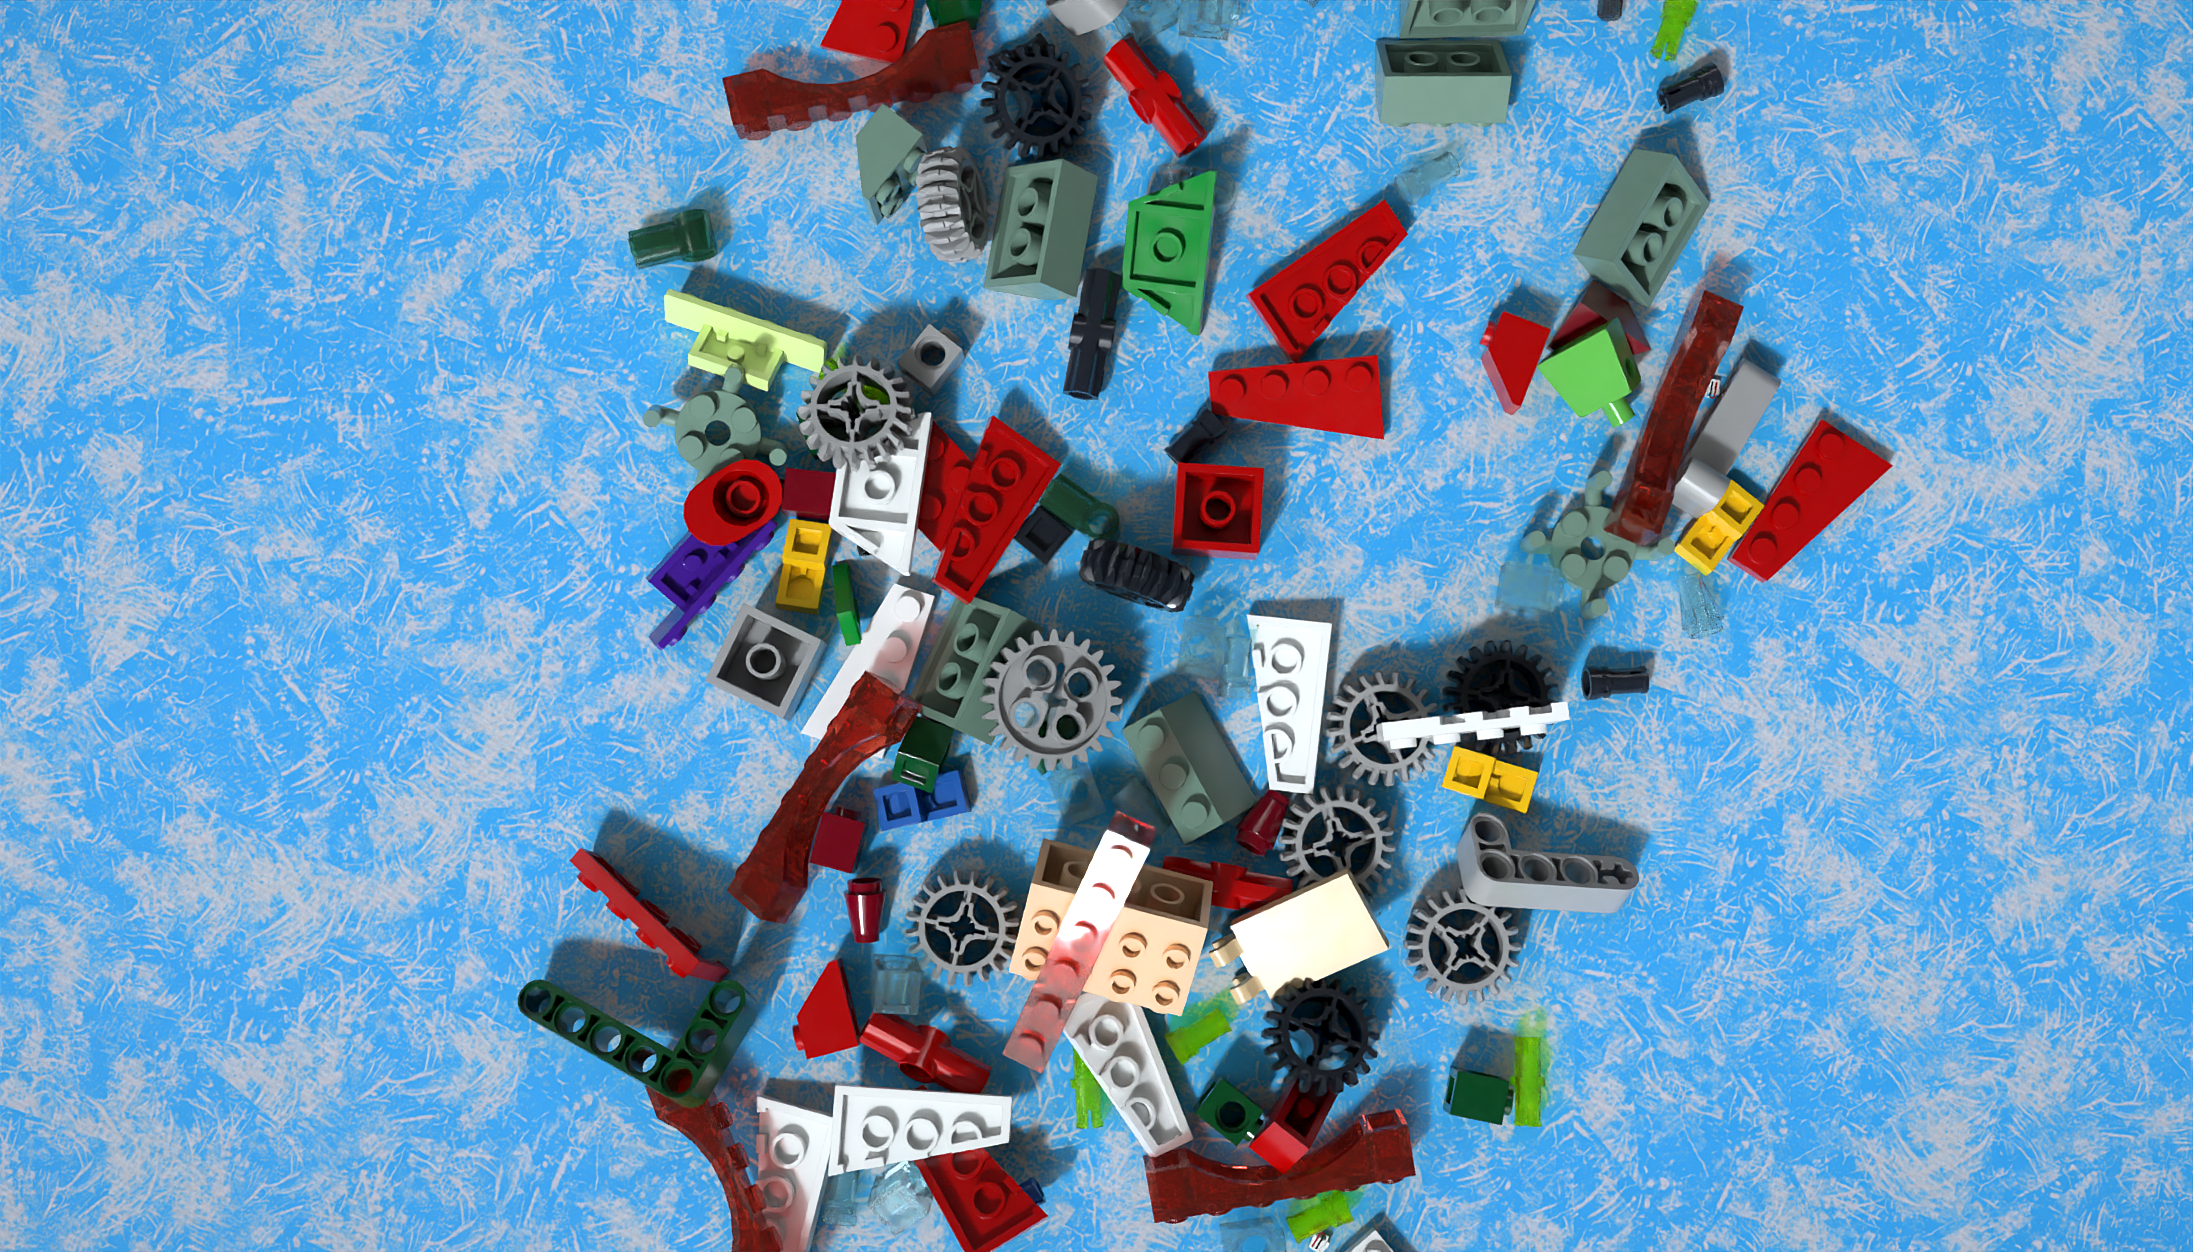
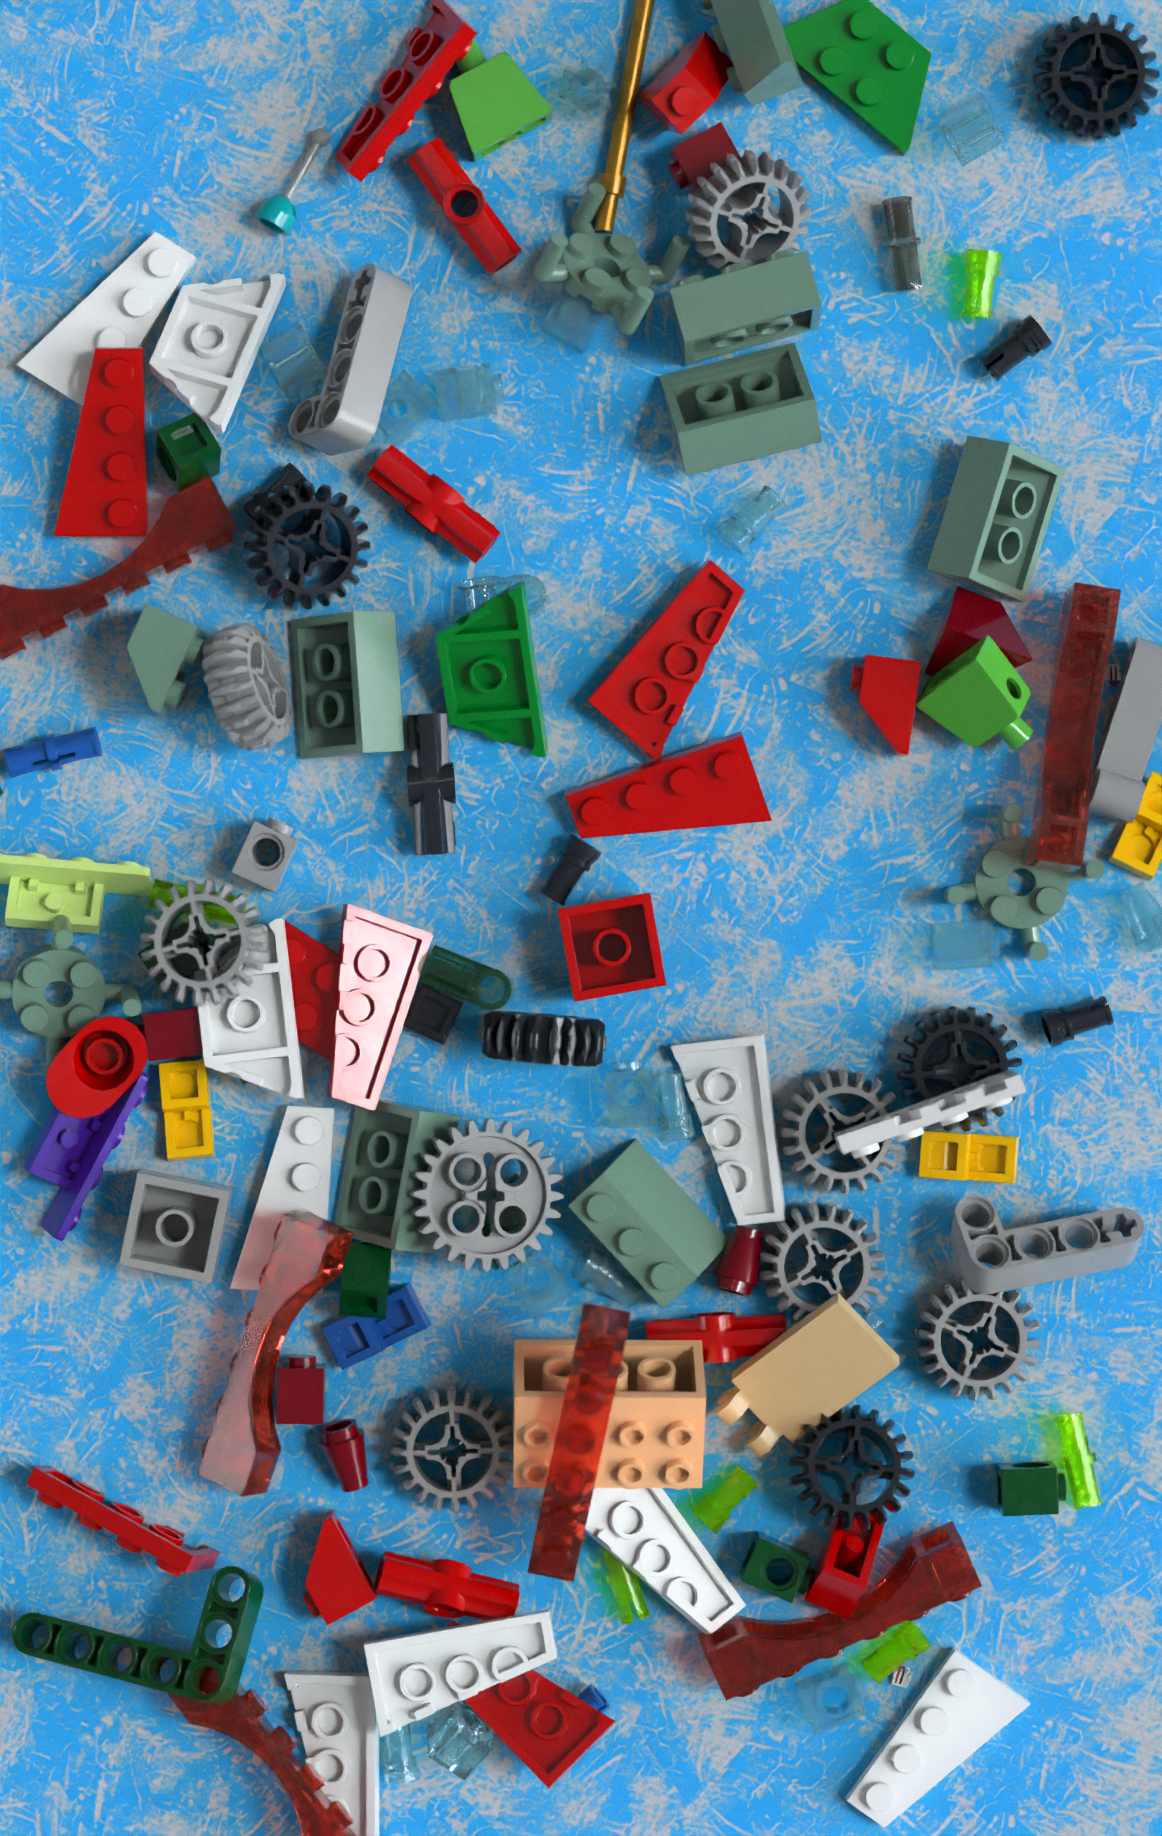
camera: 10 degrees left, 5 degrees up
(769, 228) = (53, 752): none -> blue pin
(846, 605) = (243, 1141): green tile -> none
(895, 984) = (398, 1525): clear light blue brick -> none

